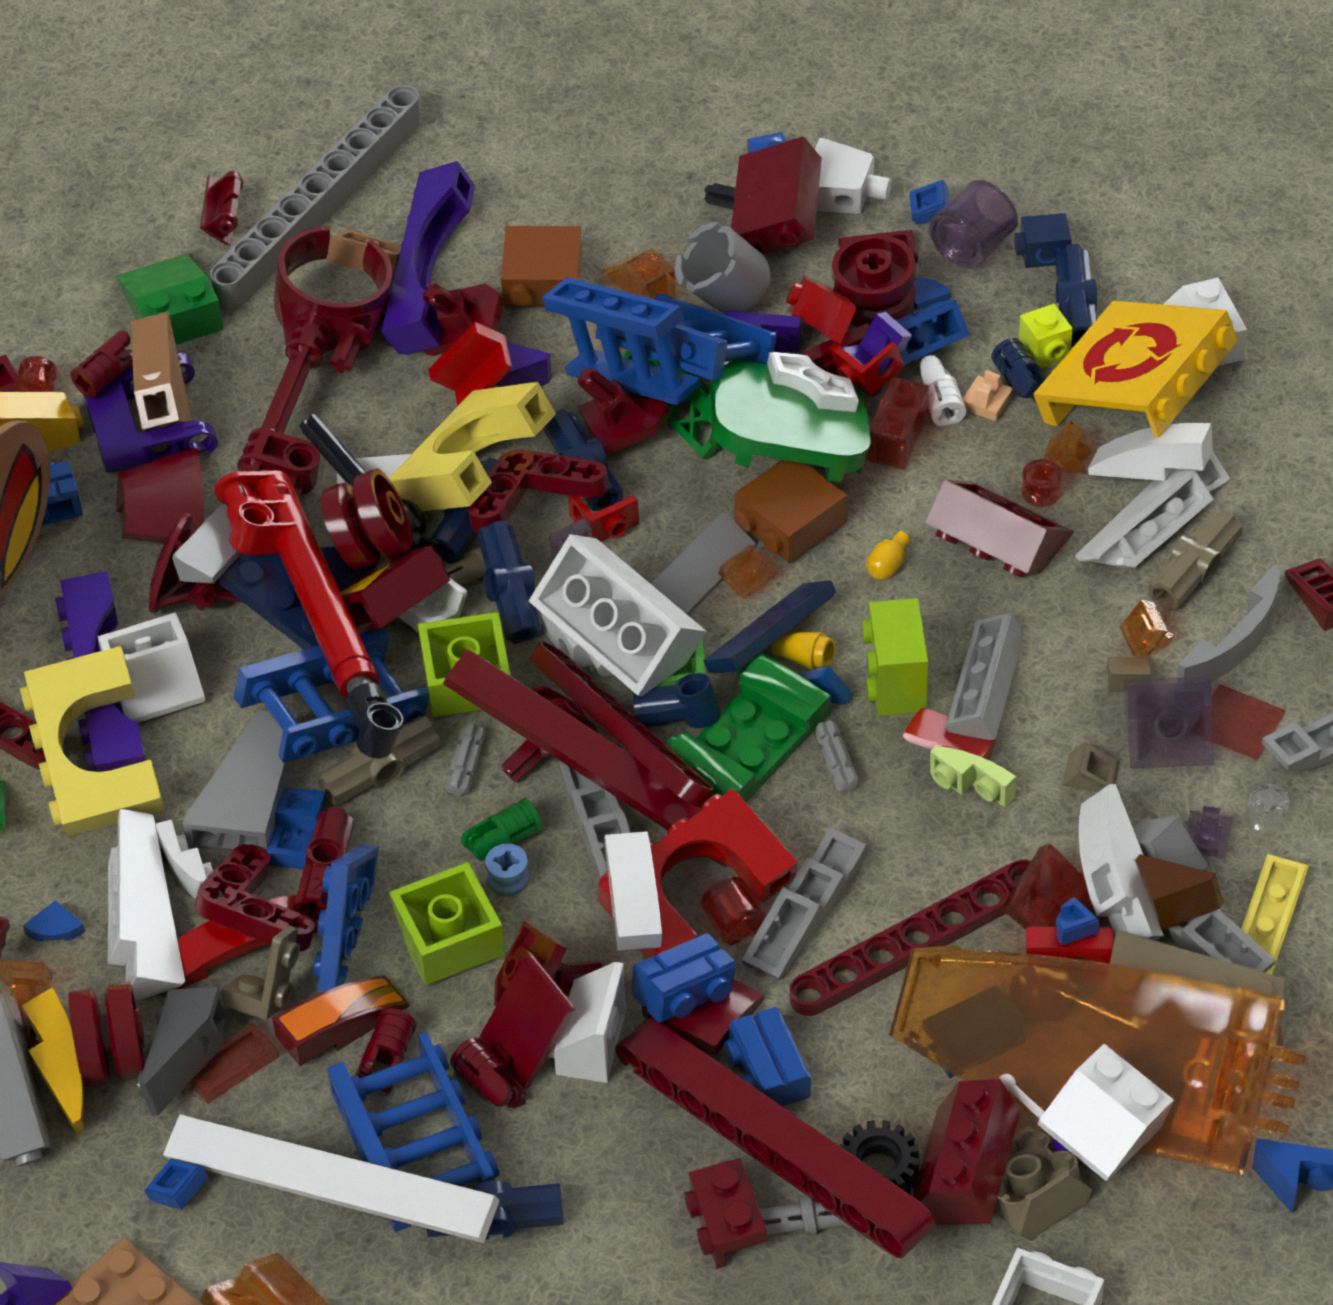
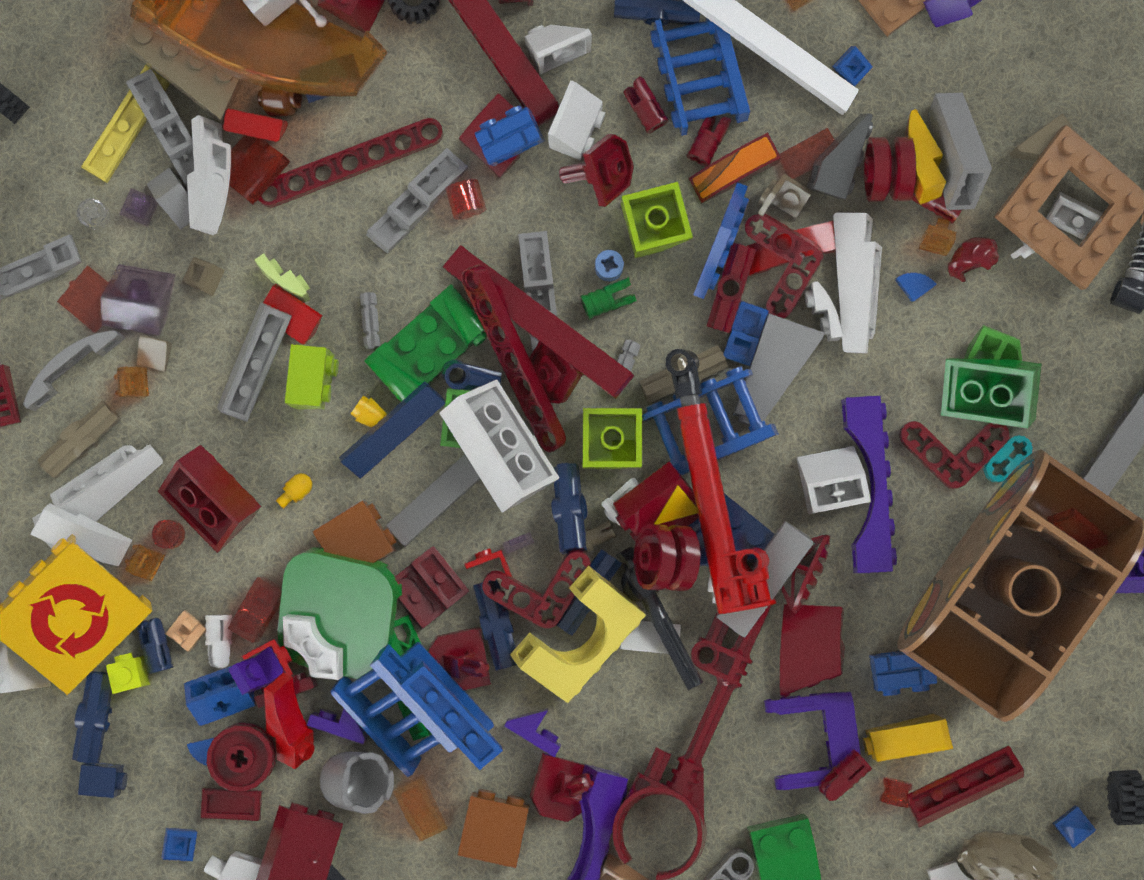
camera: 170 degrees left, 35 degrees up
(58, 697) = (892, 377): light yellow arch -> none
(157, 374) = (805, 755): medium nougat slope -> none
(472, 362) = (561, 722): red panel -> none
(527, 1020) = (616, 123): dark red container -> none
(633, 891) = (530, 195): white slope -> none
(638, 1116) = (556, 45): none -> white slope
(684, 487) = (429, 587): none -> dark red slope
(721, 831) = (462, 249): red arch -> none
(746, 572) = (397, 495): clear orange tile -> none
(768, 1056) = (465, 81): blue brick -> none
(830, 683) = (366, 381): blue tile -> none
(973, 224) = (152, 800): clear purple piece -> none
(1075, 922) = (247, 134): blue tile -> none
(1178, 890) = (176, 135): reddish brown slope -> none

